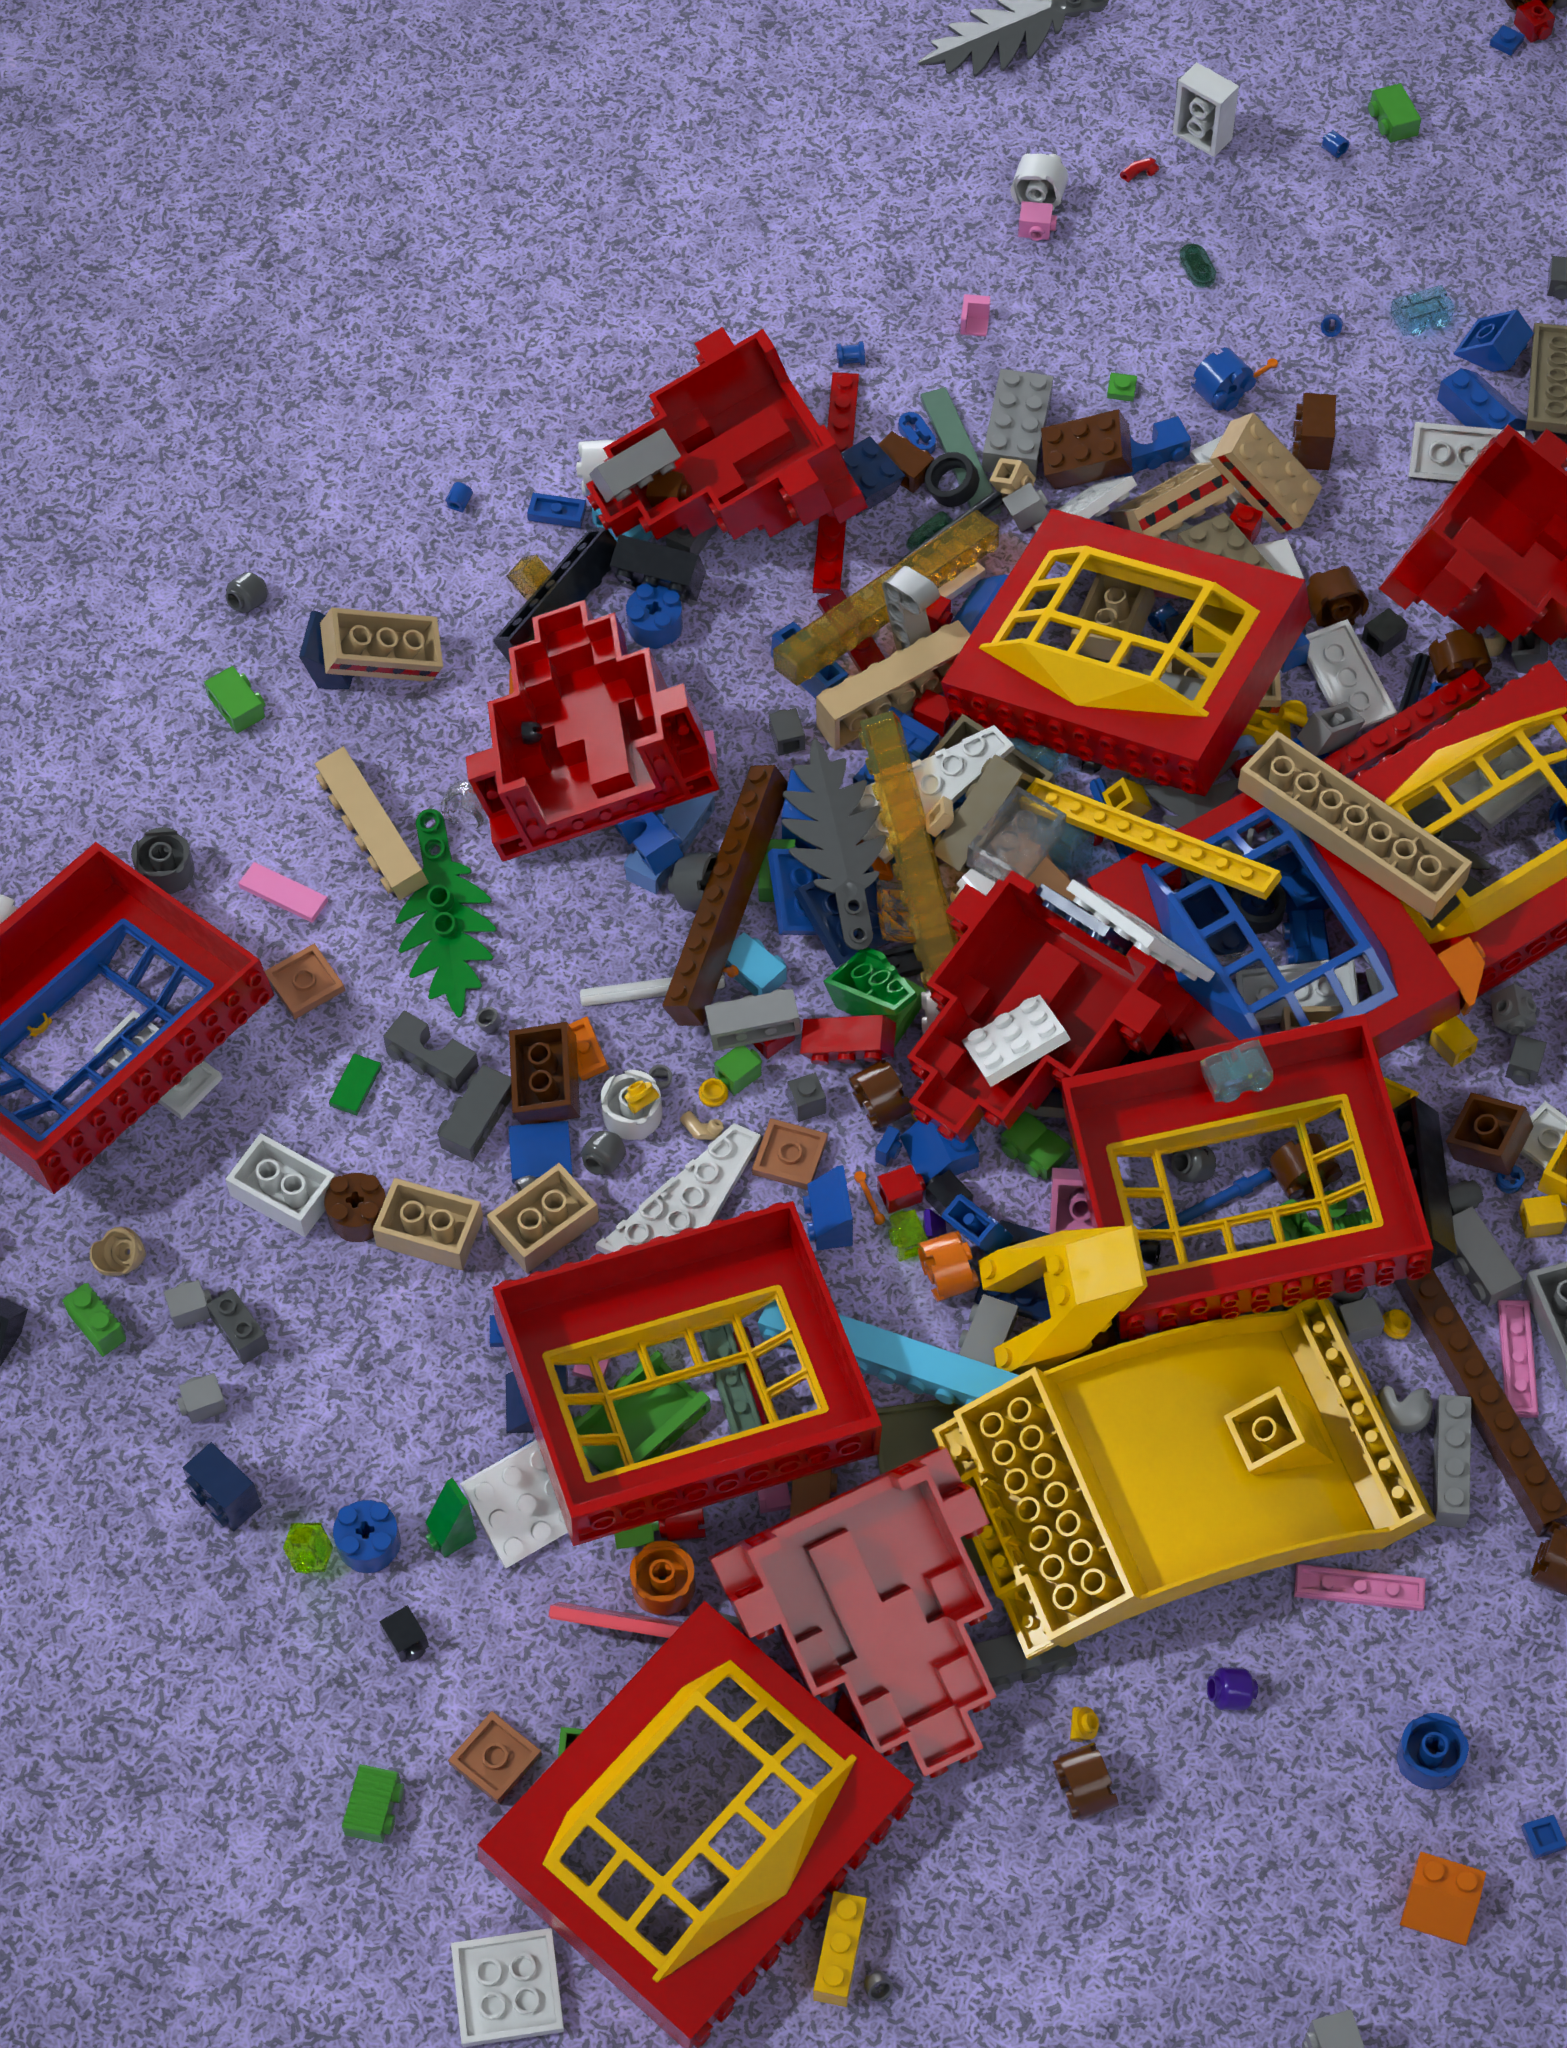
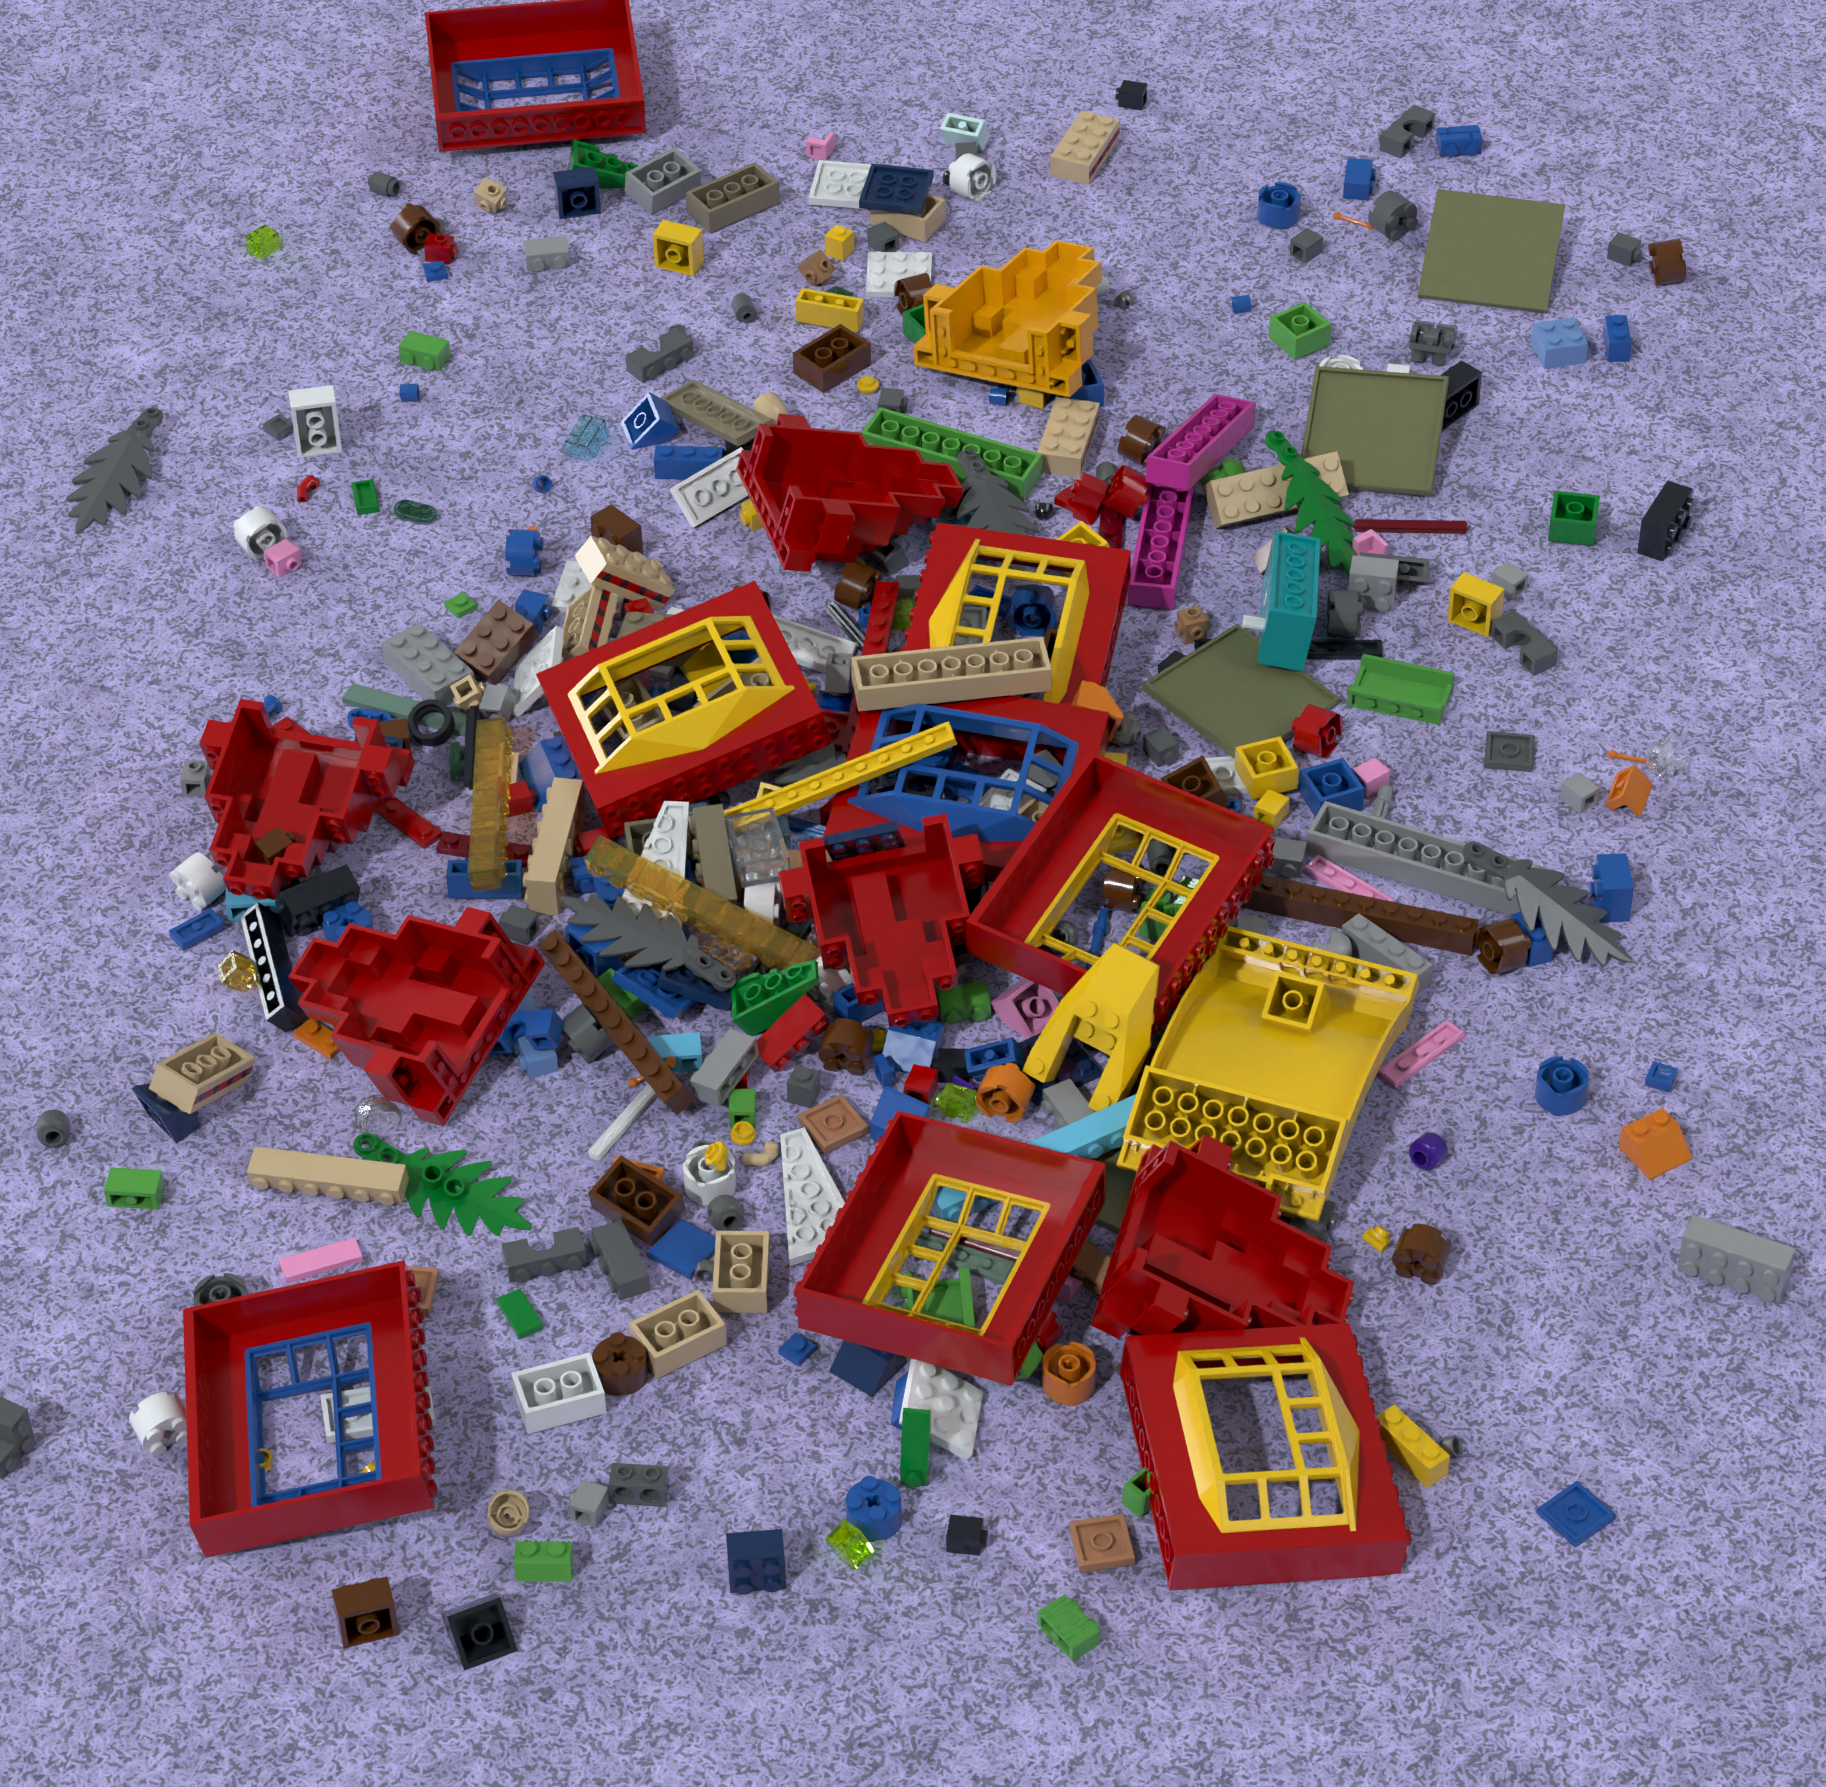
camera: 50 degrees left, 15 degrees down
(201, 1398) = (670, 1538): light grey brick -> none
(459, 496) = (119, 971): blue hose -> none
(489, 1015) = (555, 1211): flat silver hinge -> none
(507, 1987) = (1268, 1635): white plate -> none
(529, 732) = (371, 1037): black hinge -> none
(613, 1619) = (1076, 1412): coral tile -> none
(635, 466) = (249, 839): light grey brick -> none
(906, 599) = (513, 780): light grey beam -> none
(940, 817) = (694, 872): tan plate -> none
(975, 315) = (314, 634): bright pink panel -> none
(1015, 1039) = (906, 932): white plate -> none
(1139, 932) = (911, 809): white plate -> none
(1176, 216) = (365, 497): none -> green tile
(1237, 1071) = (1062, 830): clear light blue brick -> none
(1385, 632) = (795, 607): pearl dark grey brick -> none
(1396, 1324) = (1273, 920): yellow plate -> none

